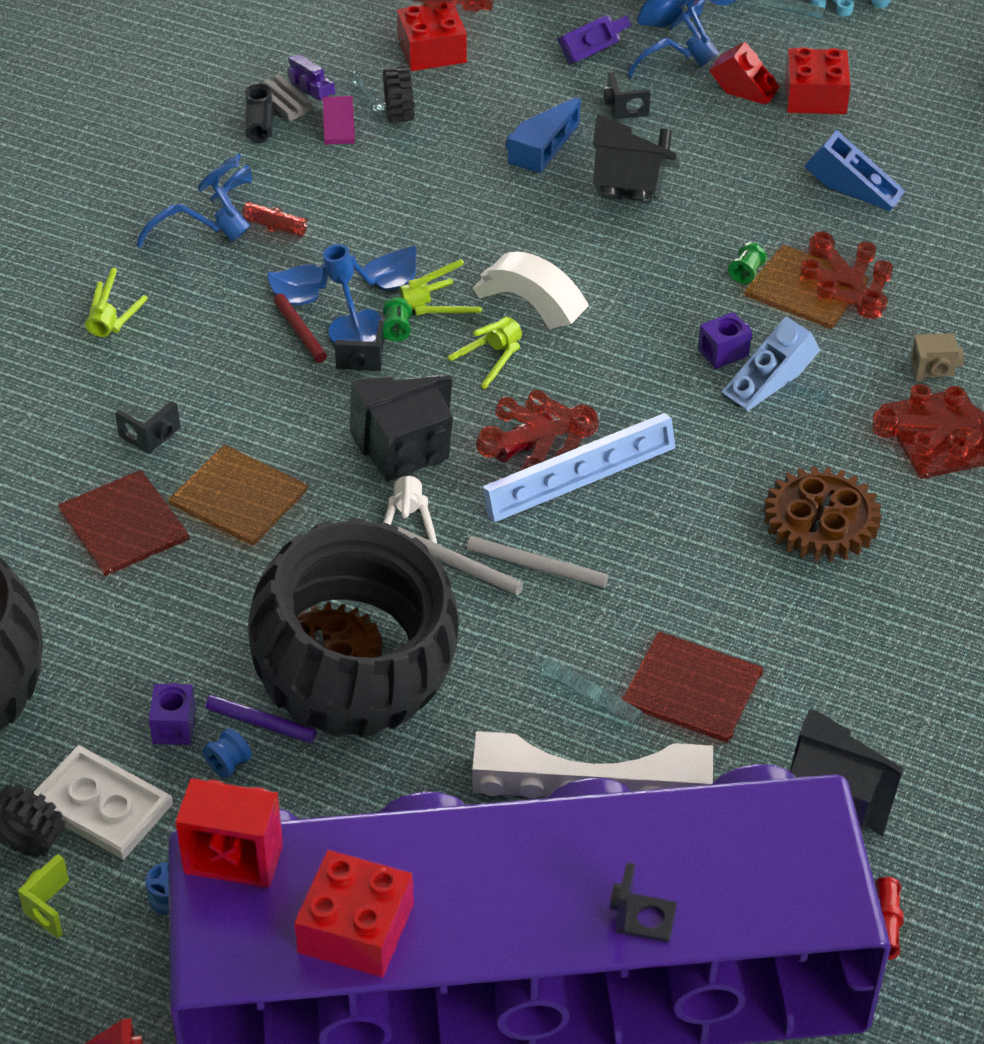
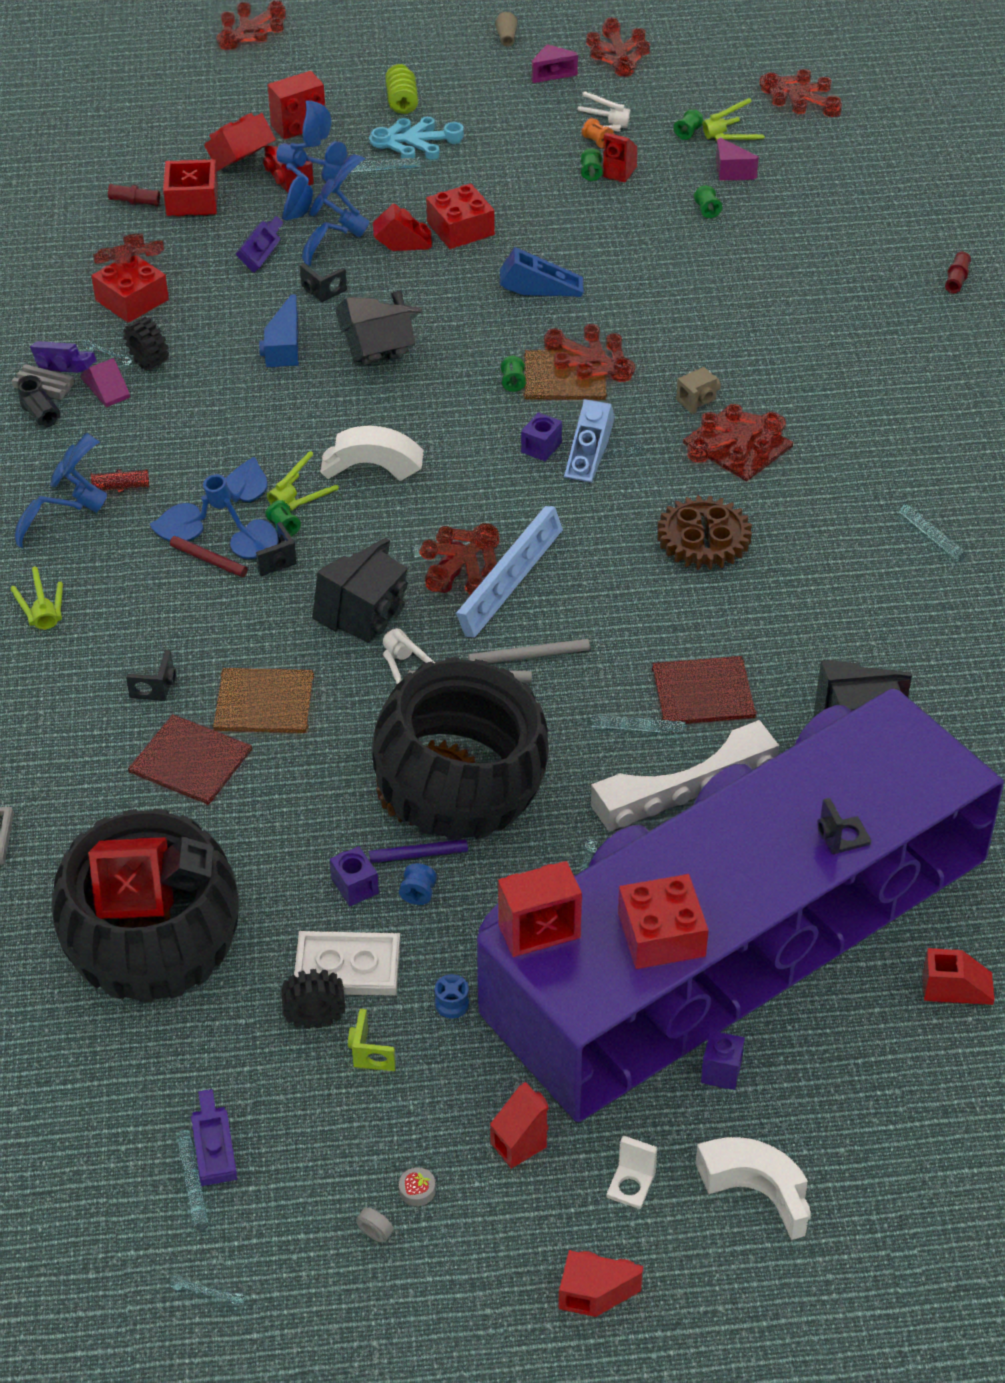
camera: 30 degrees left, 0 degrees up
(501, 336) = (372, 500): lime plant -> none

